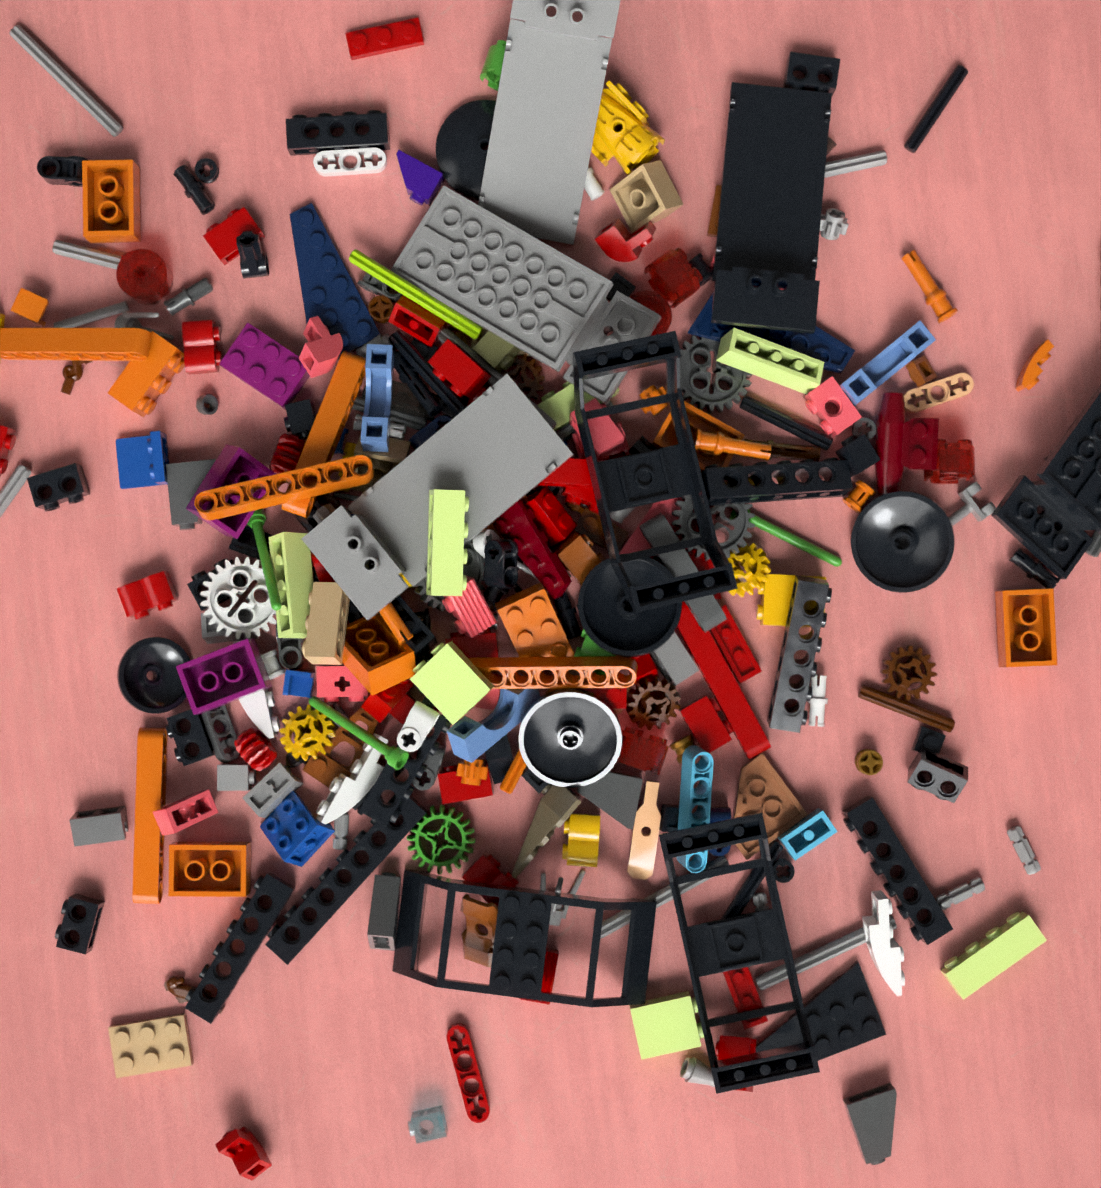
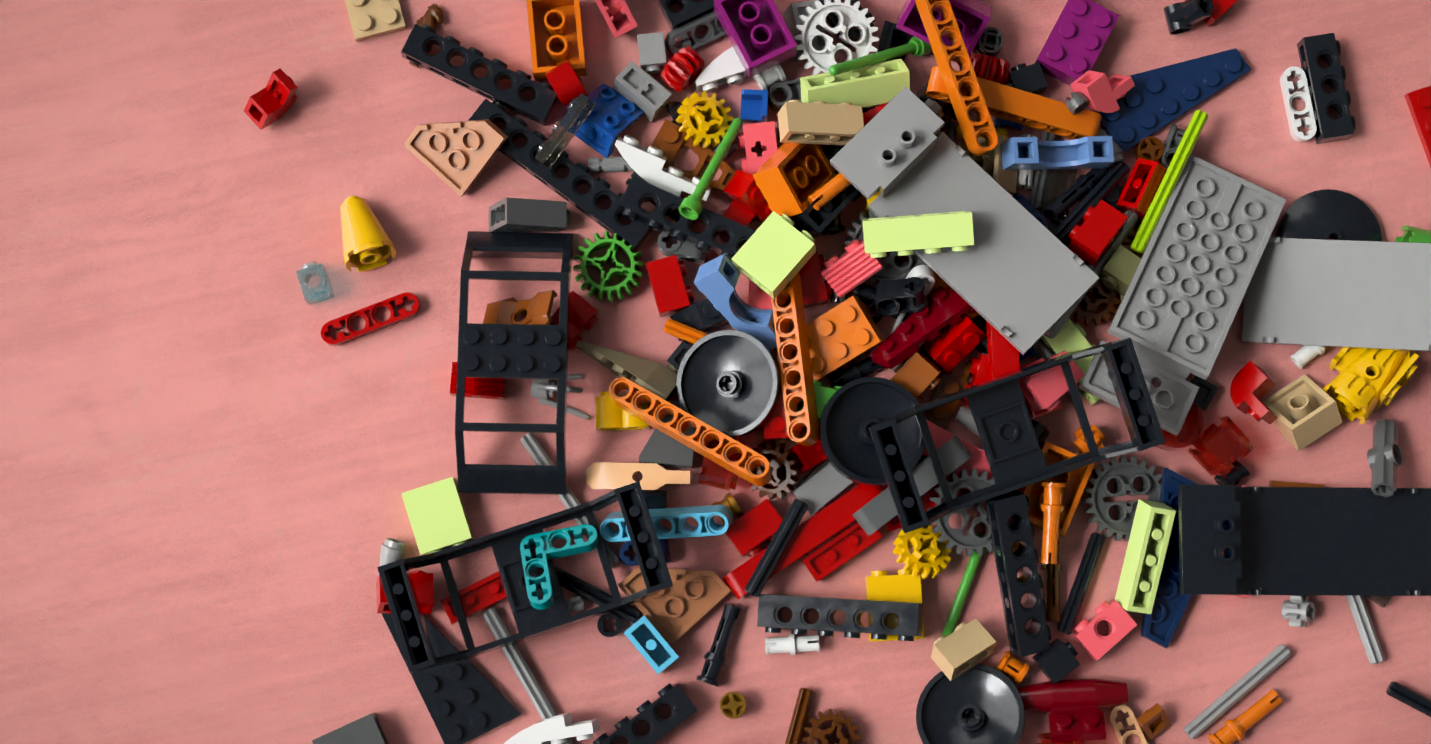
camera: 80 degrees right, 5 degrees down
(260, 864) = (566, 83): none -> red brick
(263, 447) = (986, 46): none -> dark grey wheel
(306, 871) = (564, 130): none -> clear smoke plate
(312, 976) = (456, 149): none -> plate
(330, 373) = (1077, 103): none -> dark grey hinge
(387, 1074) = (363, 237): none -> yellow cone
(419, 722) = (726, 225): white piece -> none
(420, 179) = (1289, 175): dark purple slope -> none
(472, 772) = (683, 287): orange gear -> none
(605, 788) = (699, 440): none -> orange beam
(699, 125) = (1384, 458): none -> dark grey piece
(712, 927) = (546, 551): none -> teal beam
(728, 707) = (776, 547): none -> black axle
(823, 773) = (715, 658): none -> black pin
(838, 541) = (962, 649): none -> tan brick
(869, 422) = (1089, 660): dark grey bush -> none
(887, 363) = (1156, 683): medium blue arch -> none
(897, 285) = (1237, 691): none -> light grey axle

